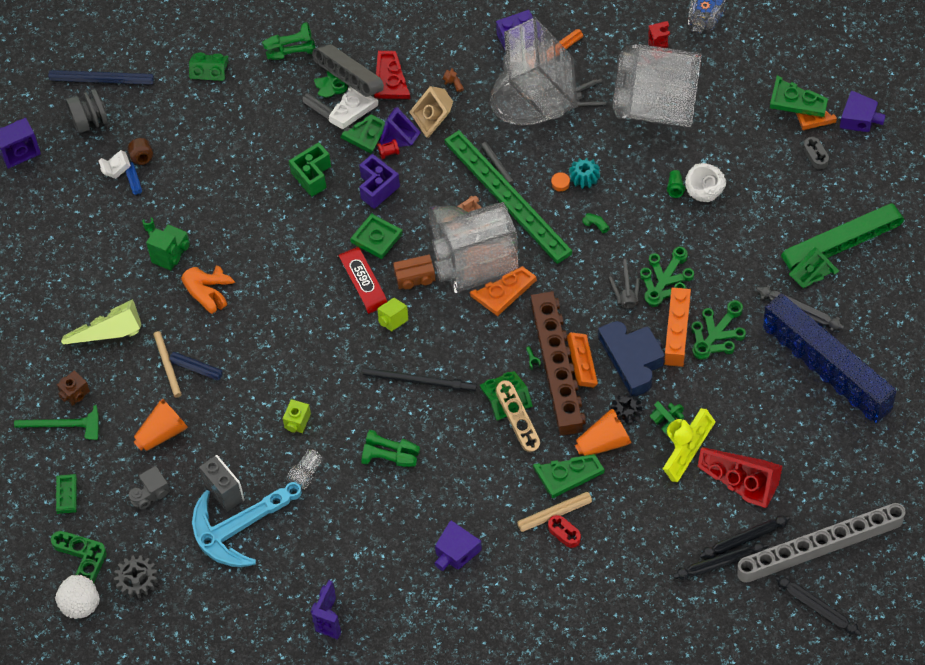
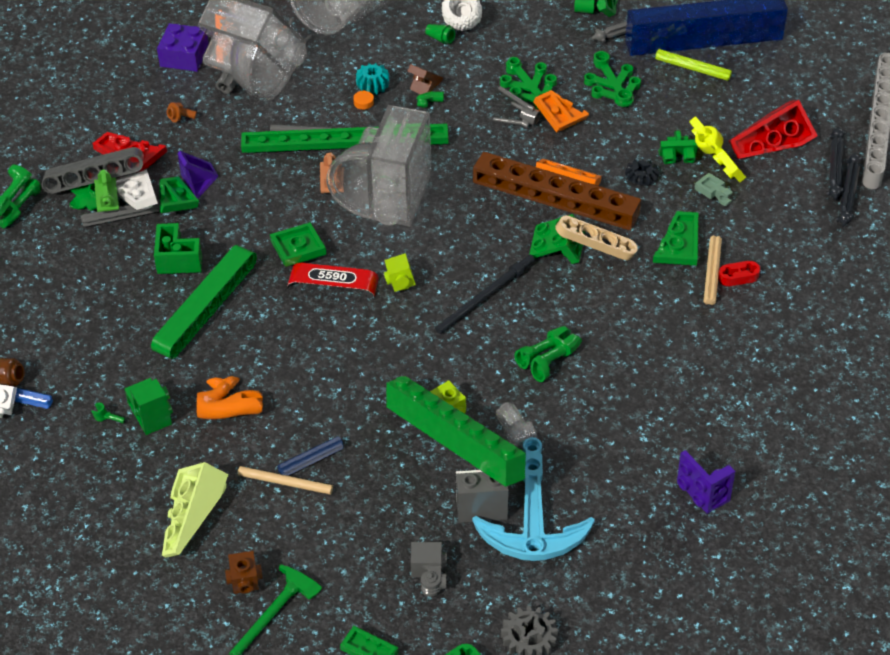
camera: 60 degrees left, 10 degrees down
(159, 426) = (363, 515): orange cone -> none
(253, 433) = (456, 431): none -> green brick
(283, 217) = (203, 302): none -> green beam
(332, 93) = (106, 192): none -> bright green hinge
(379, 181) = (238, 207): dark purple brick -> none
(388, 149) = (208, 189): red bush -> none
(414, 272) = (365, 237): dark orange brick -> none
(431, 109) = (202, 138): tan slope -> none
(456, 547) = (698, 354): dark purple torso -> none
(504, 292) = (444, 189): orange wing -> none
(533, 359) = (540, 208): green hand -> none
(603, 436) = (665, 191): orange cone -> none
(612, 205) = (423, 80): none -> reddish brown slope
(632, 355) = (592, 140): dark blue brick -> none
(643, 464) = (713, 186): none -> sand green plate
(646, 314) = (558, 111): none -> orange wing
(677, 327) = (609, 107): orange arch -> none
(783, 376) = (694, 65): none -> lime axle

